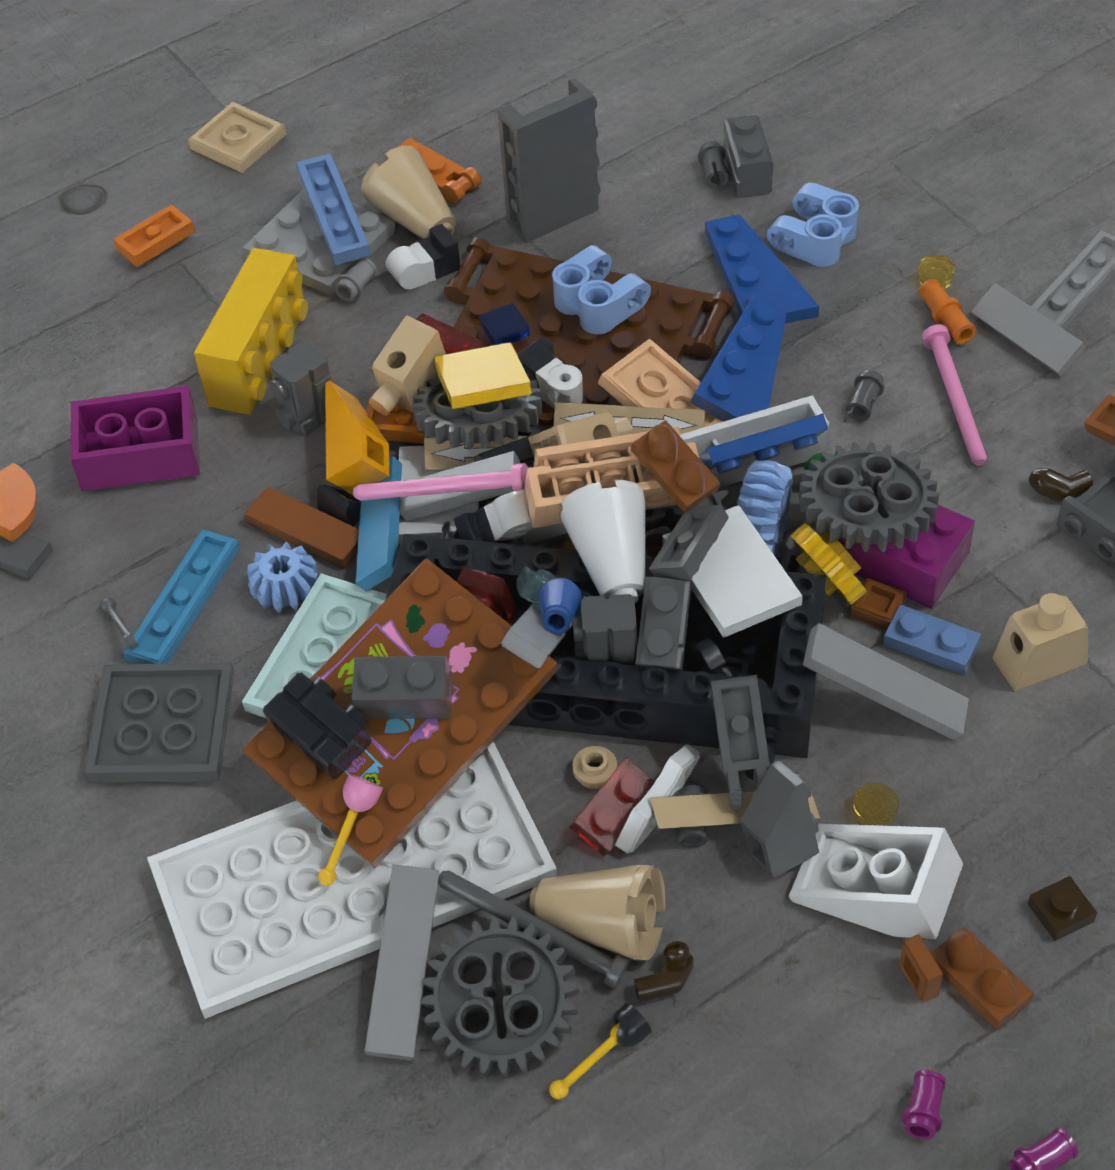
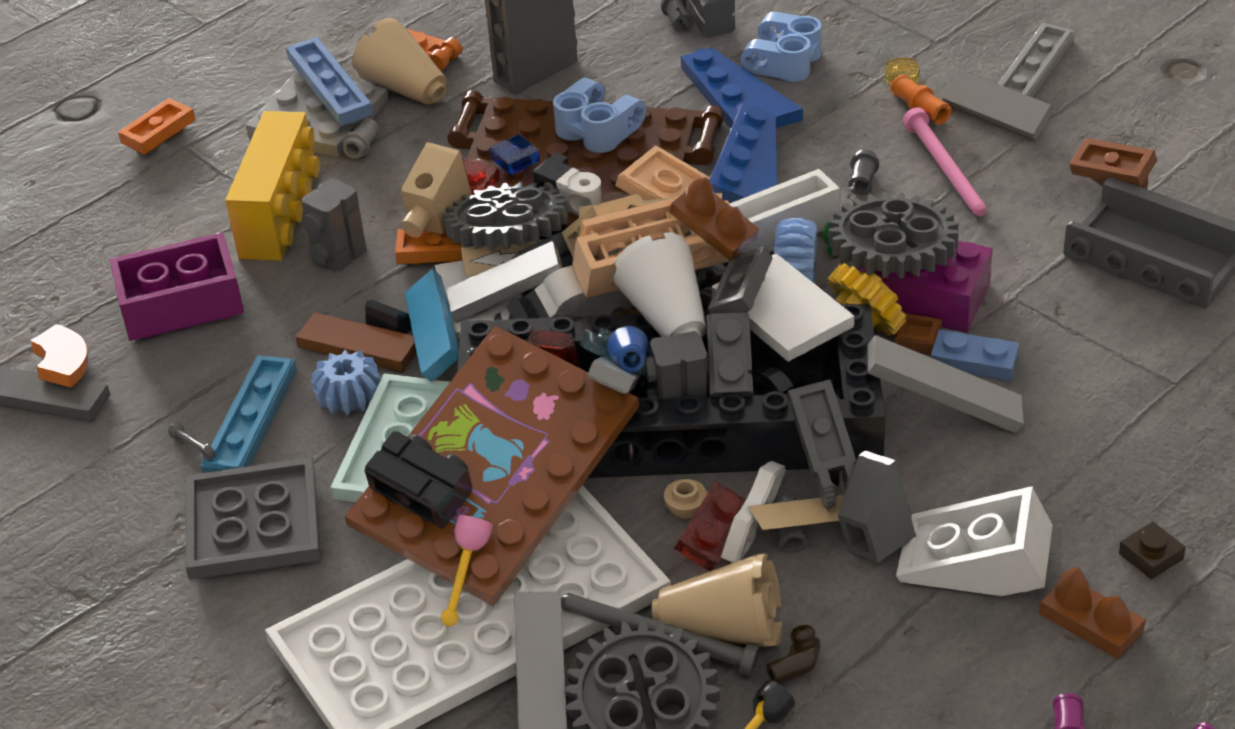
camera: 10 degrees left, 10 degrees down
(237, 137) = (219, 41): tan tile -> none
(354, 444) = (394, 267): light orange slope -> none
(403, 687) = (497, 432): dark grey brick -> none
(425, 259) = (425, 114): leg -> none
(439, 485) = (531, 267): bright pink bar -> none
(482, 375) = (507, 186): yellow tile -> none
(764, 444) = (815, 195): blue plate -> none
(875, 805) = (956, 489): clear yellow tile -> none
(920, 968) = (1036, 613): dark orange tile -> none
(1042, 642) = (1078, 337): tan torso -> none
(1058, 486) = (1055, 220): dark brown arm -> none

